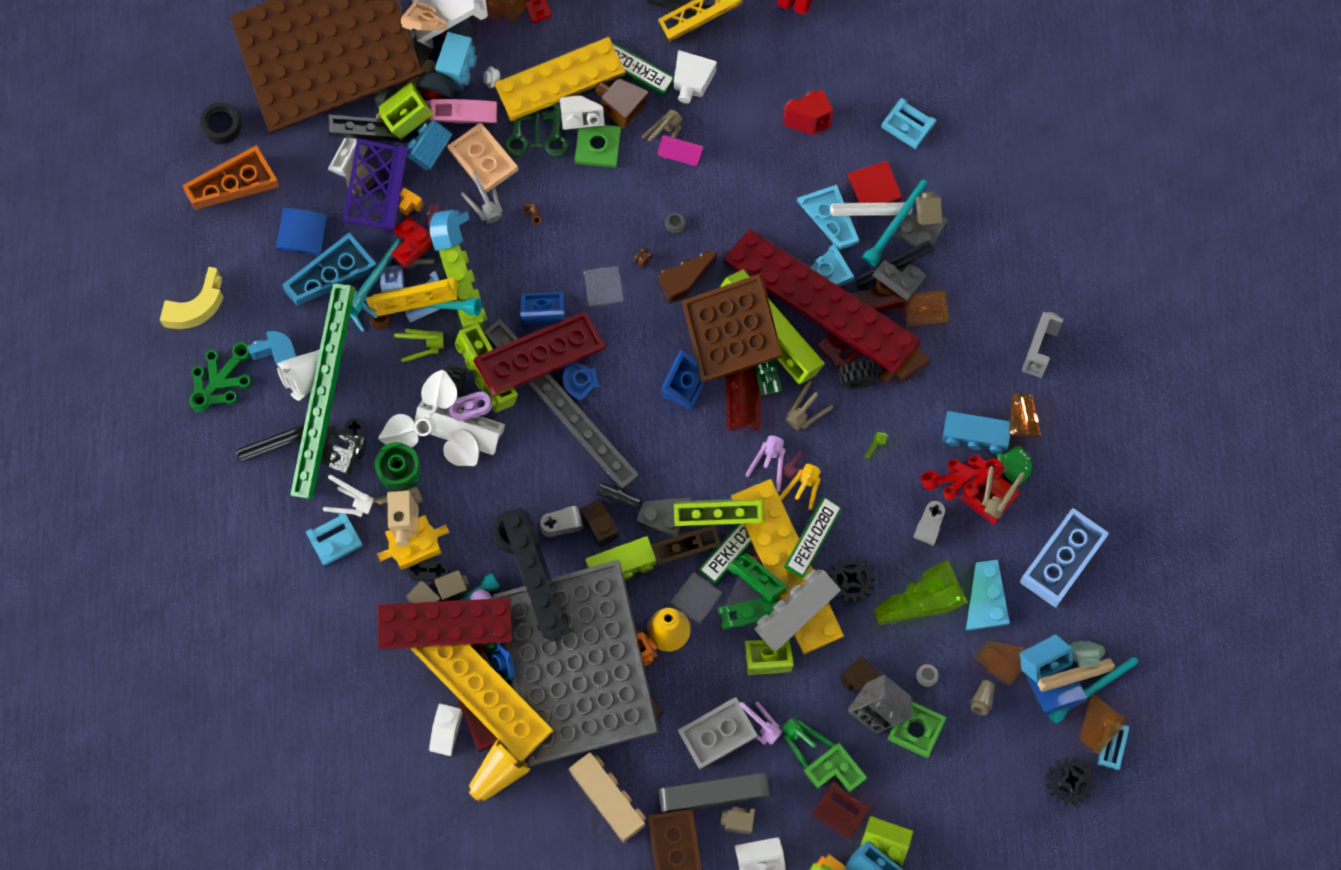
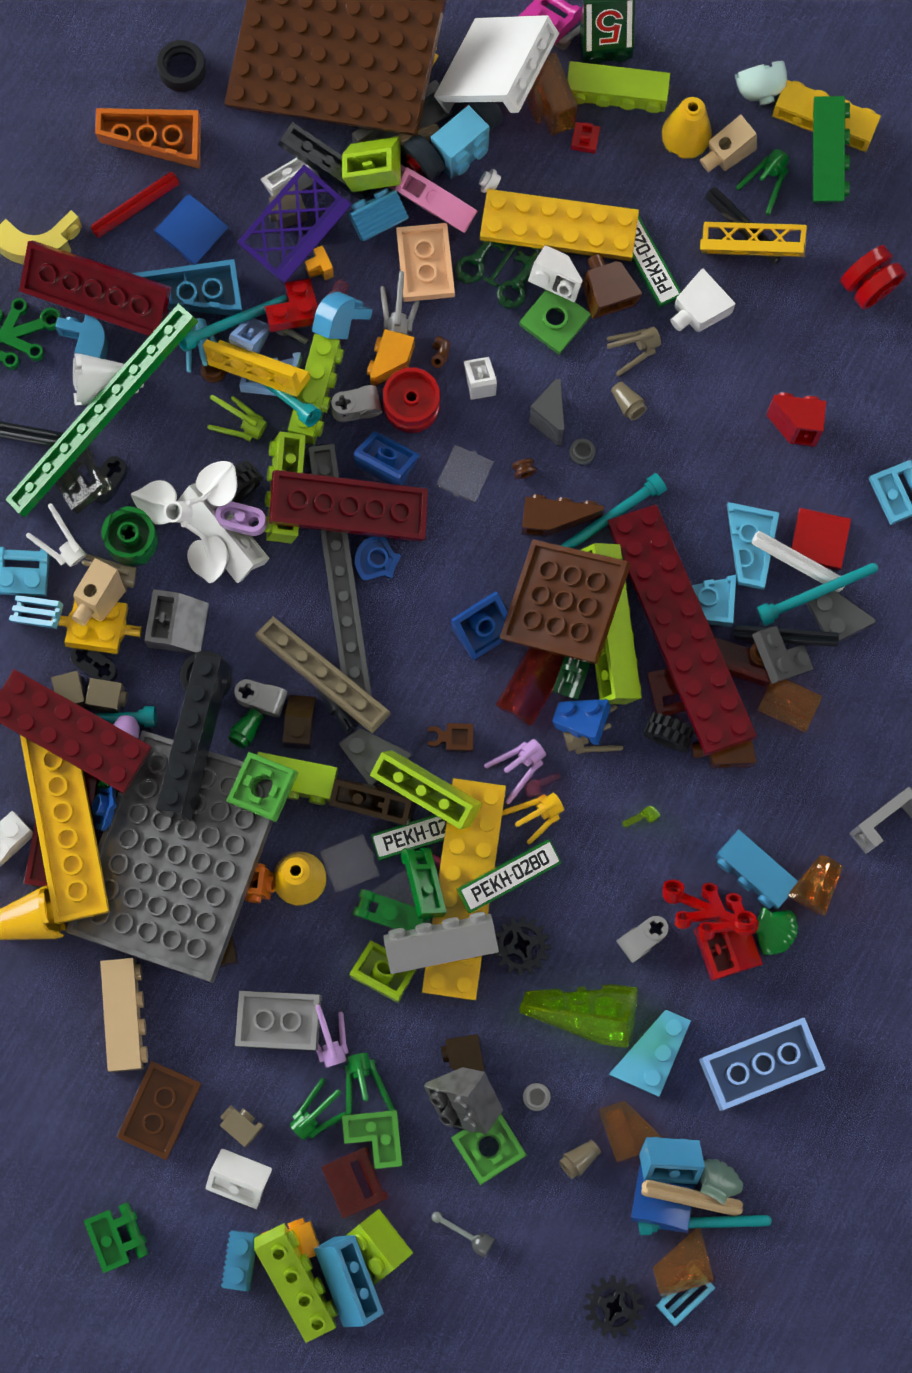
camera: 30 degrees right, 5 degrees up
(249, 238) = (134, 204): none -> red axle
(262, 310) = (94, 288): none -> dark red plate
(349, 565) = (19, 609): none -> medium azure tile
(422, 18) = (449, 74): light nougat plate -> none
(469, 506) = (176, 622): none -> flat silver slope
(499, 281) = (359, 403): none -> light grey piece
(502, 236) = (393, 354): none -> light orange slope
(535, 256) = (406, 386): none -> red wheel
(565, 550) = (245, 729): none -> green cone
(572, 214) = (480, 378): none -> white slope
(594, 569) = (251, 773): none -> bright green piece
(595, 479) = (323, 674): none -> dark tan tile
(638, 210) = (547, 413): none -> dark grey slope
(679, 150) = (636, 376): dark pink slope -> none
(686, 170) = (629, 402): none -> dark tan cone
(714, 467) = (457, 737): none -> reddish brown plate
(714, 793) = (234, 1080): dark grey beam -> none
(739, 217) = (652, 487): none -> teal piece
(782, 792) = (305, 1123): none -> green plant
(794, 400) = (582, 718): none -> blue wing
(928, 208) = (859, 598): dark tan brick -> none
(953, 796) = (480, 1243): none -> hinge
(996, 505) = (720, 965): dark tan plant -> none

